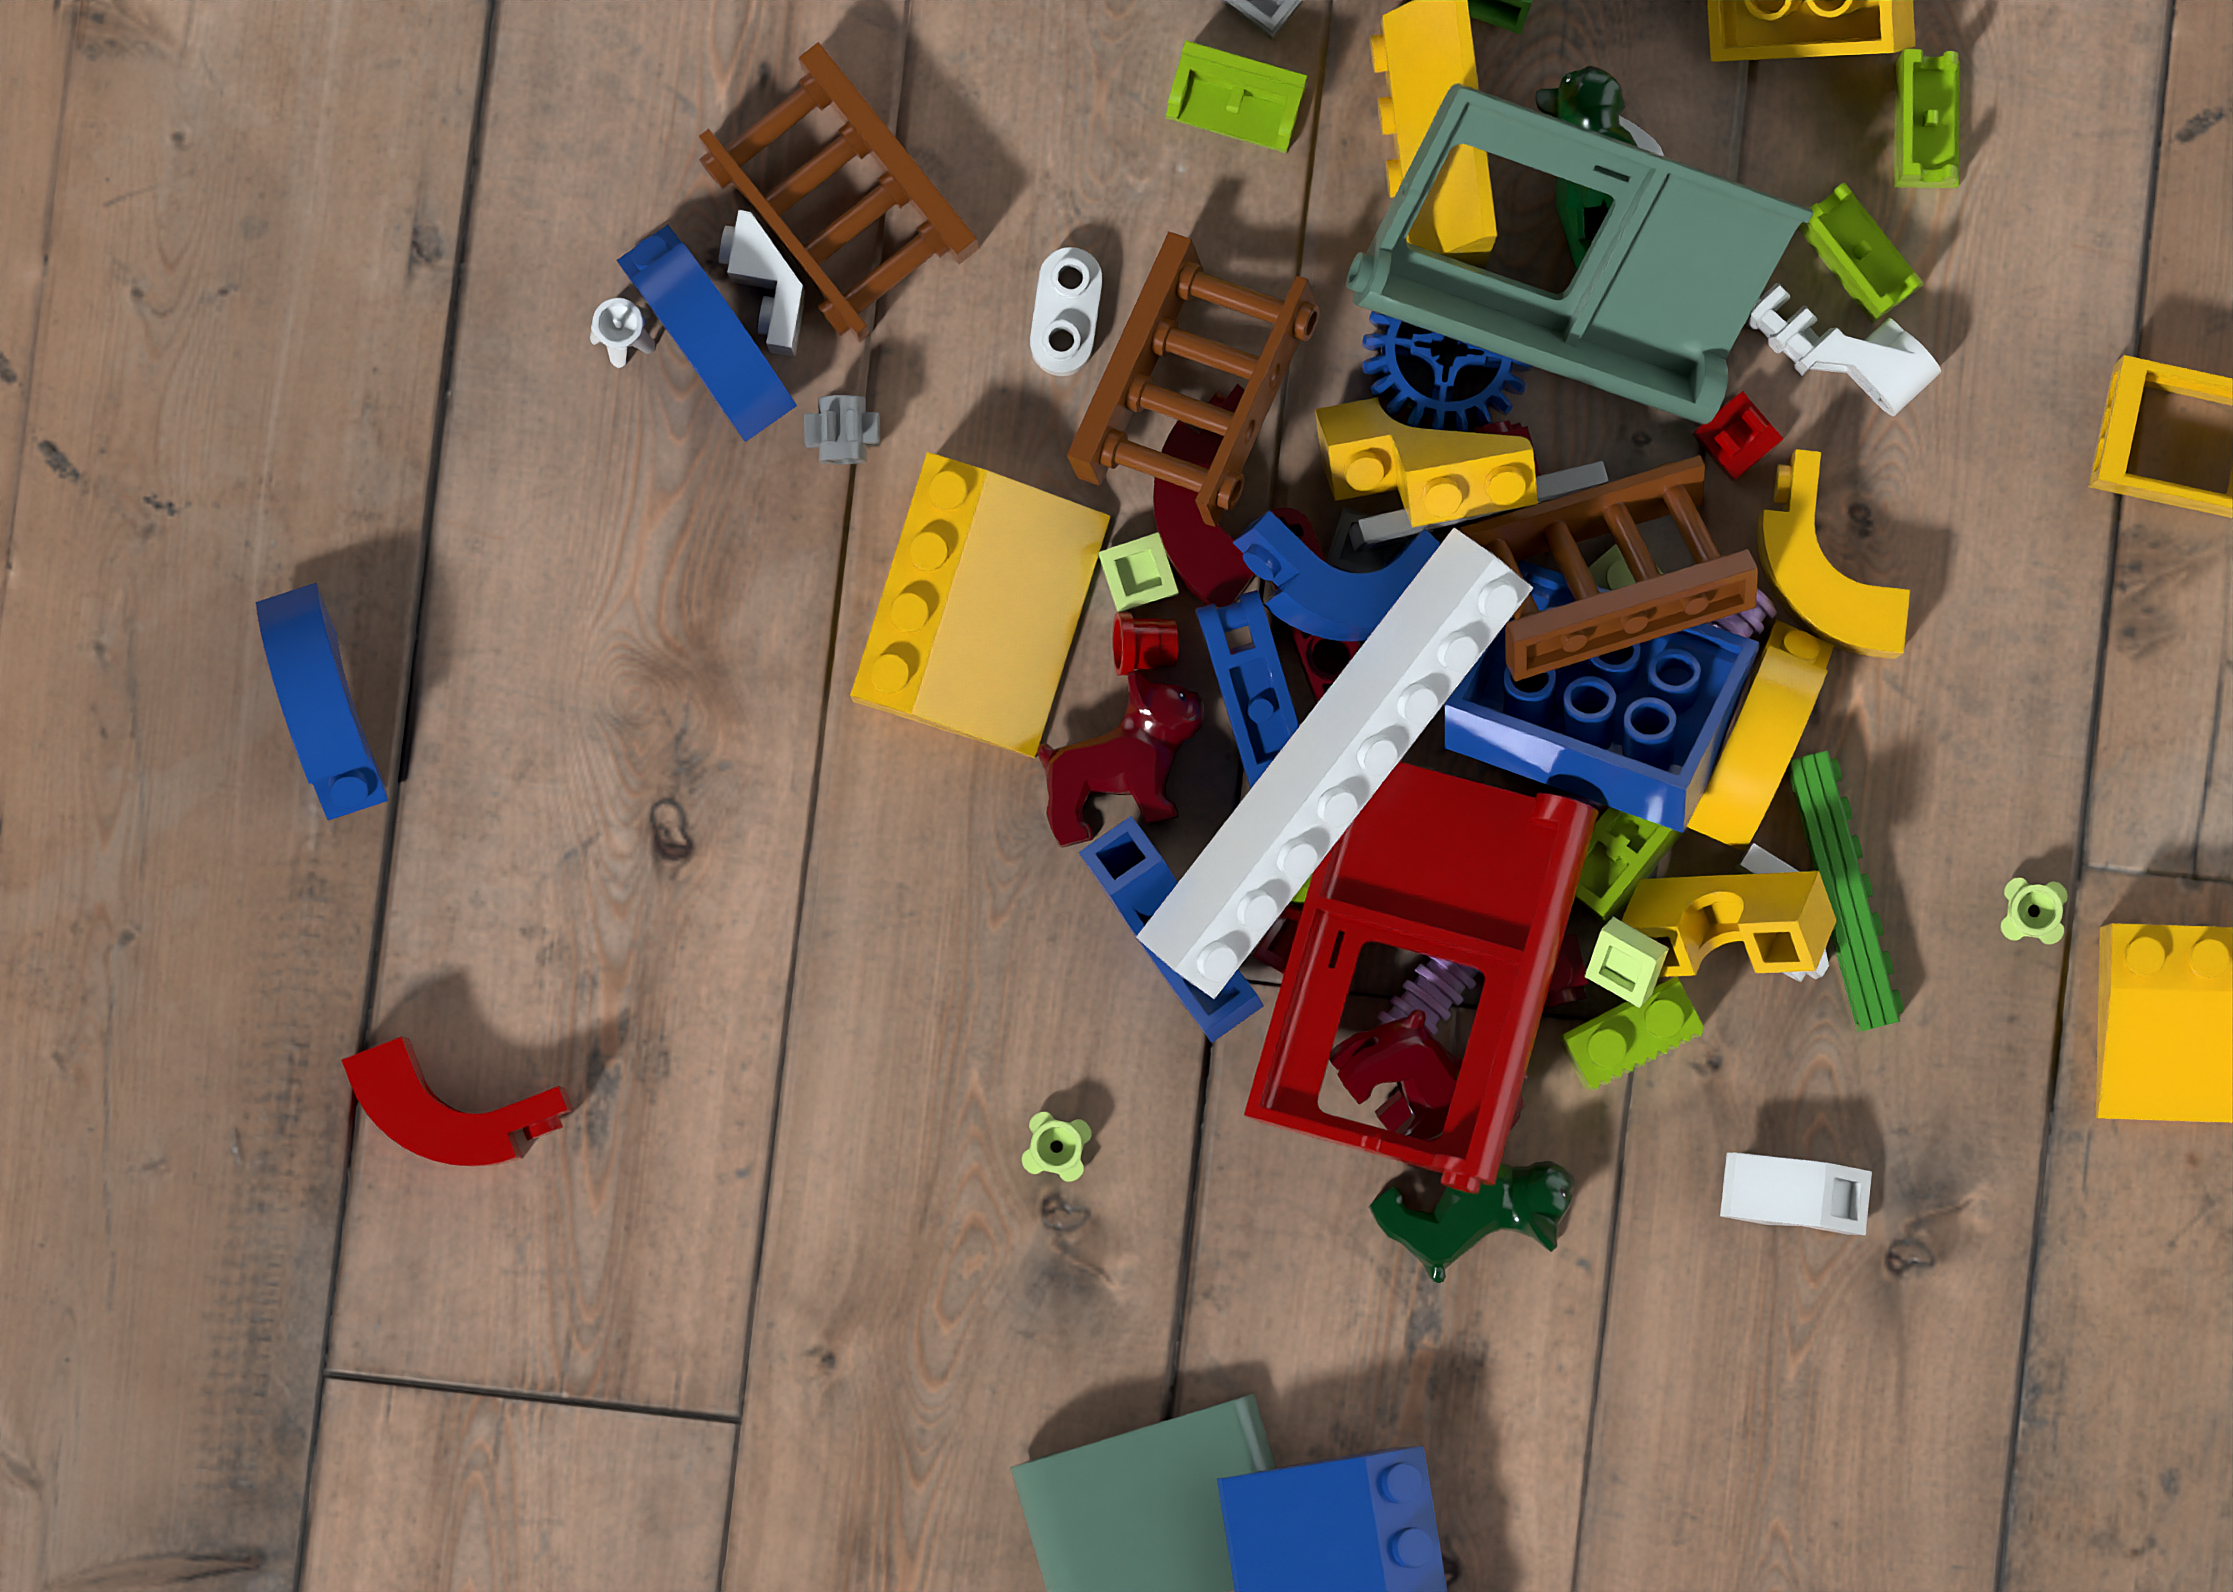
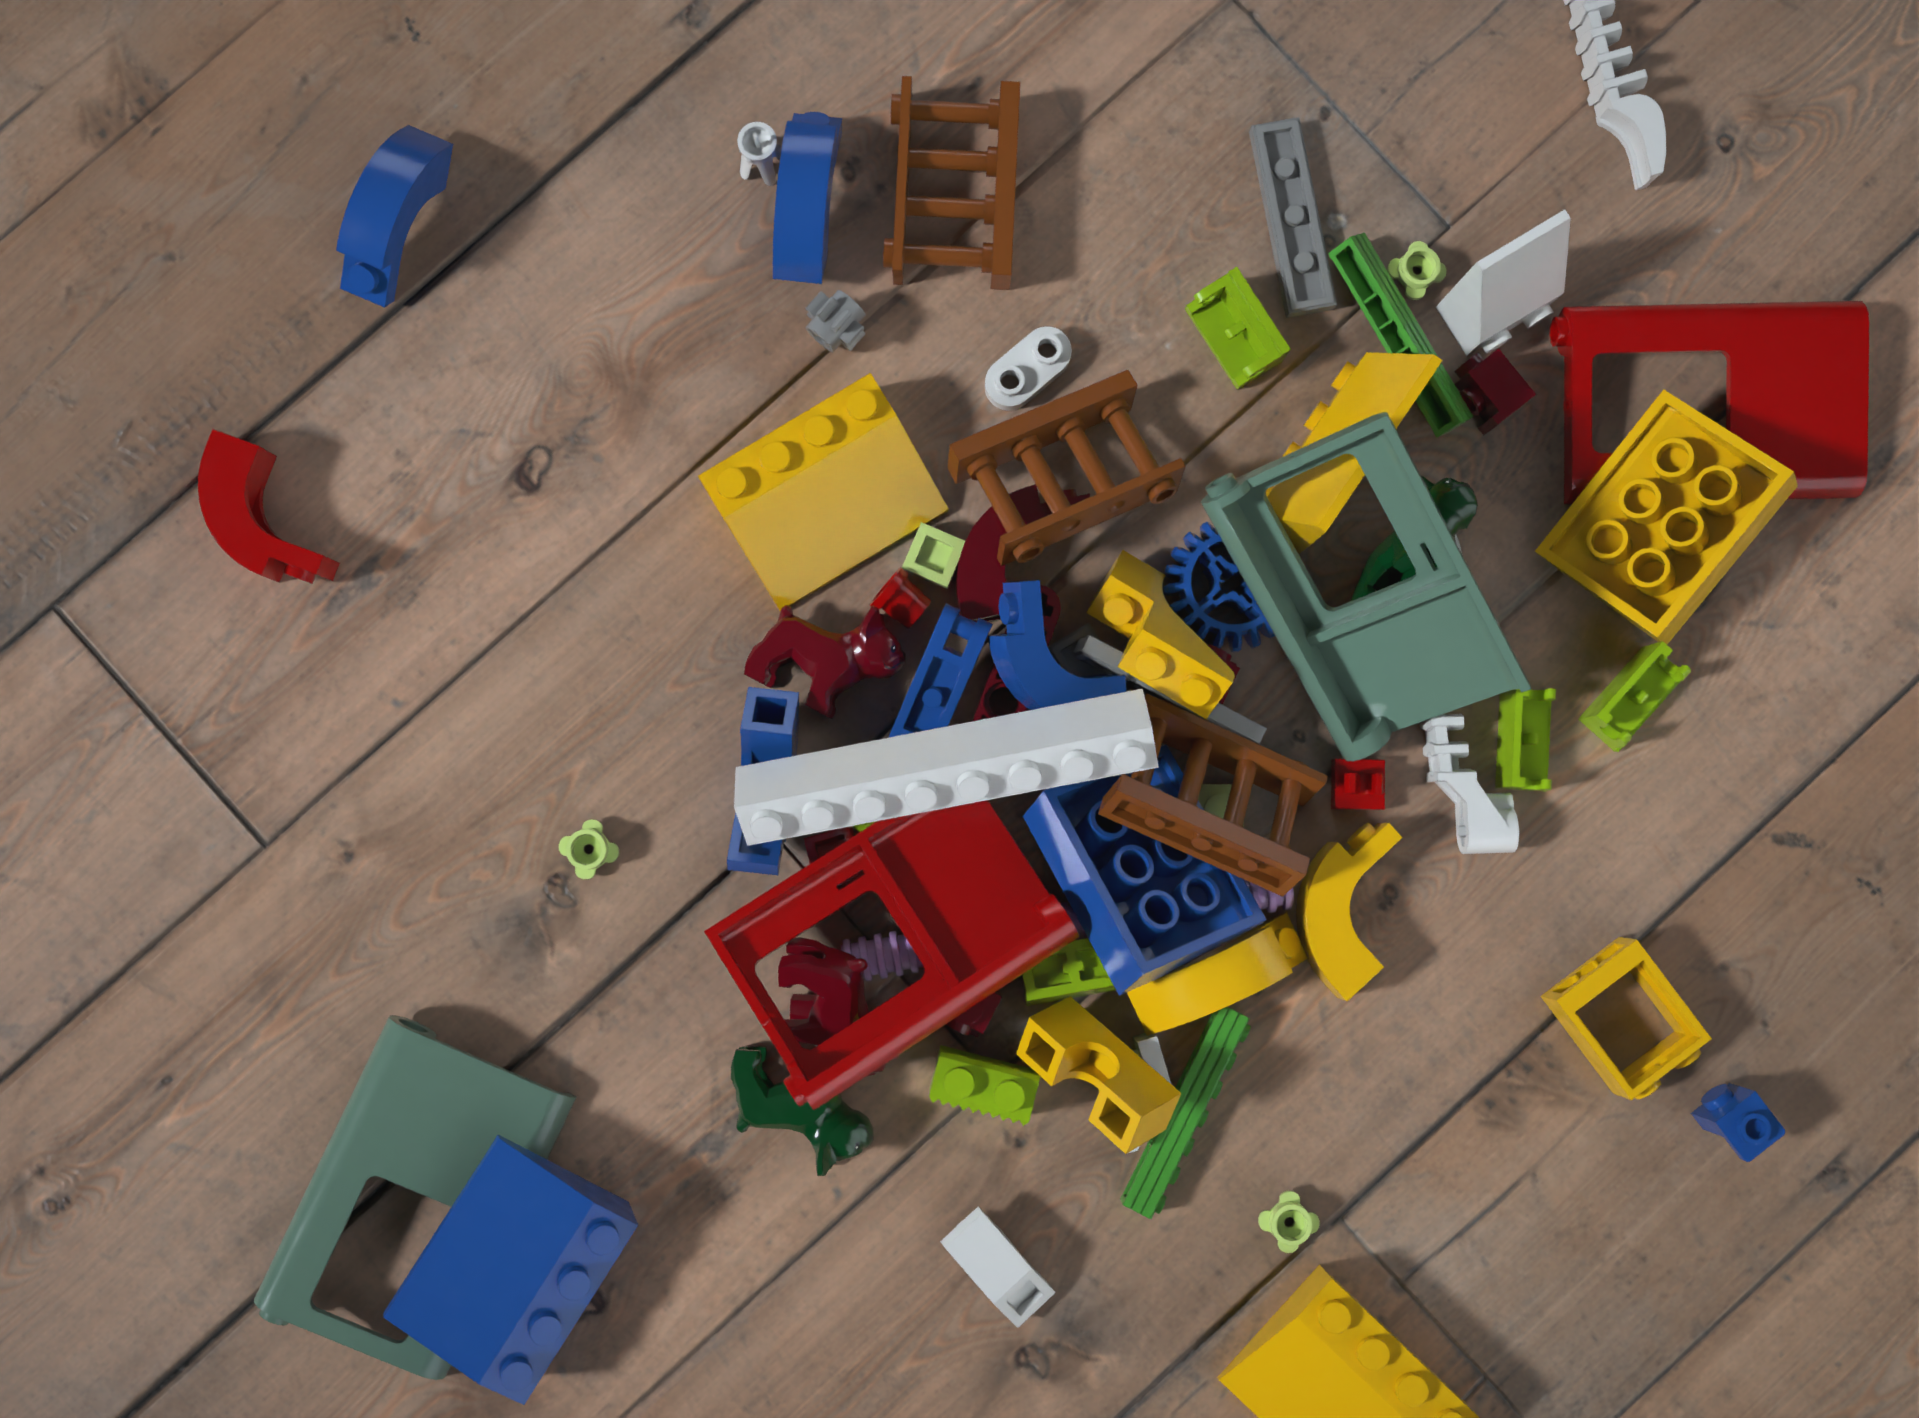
camera: 30 degrees right, 0 degrees up
(758, 263) = (872, 181): white slope -> none
(1626, 962) = (1016, 1043): yellowish green plate -> none

